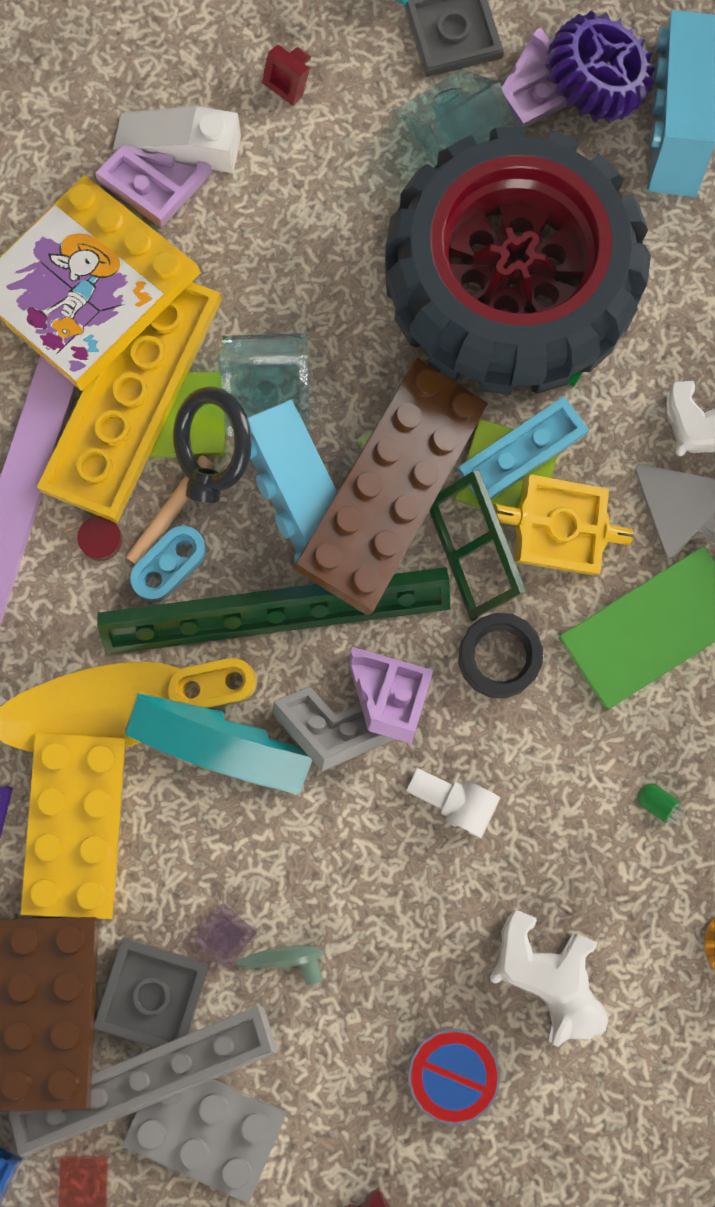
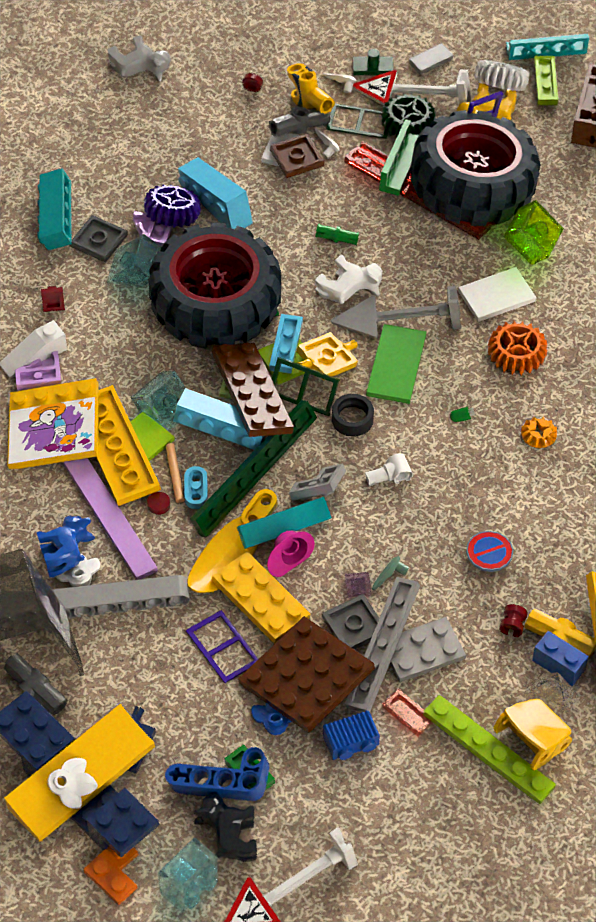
camera: 45 degrees left, 25 degrees down
(178, 792) = (289, 551): none -> dark pink piece
(205, 483) = (179, 448): black piece -> none
(389, 693) = (328, 455): lavender wing -> none
(554, 978) = (487, 492): white animal -> none

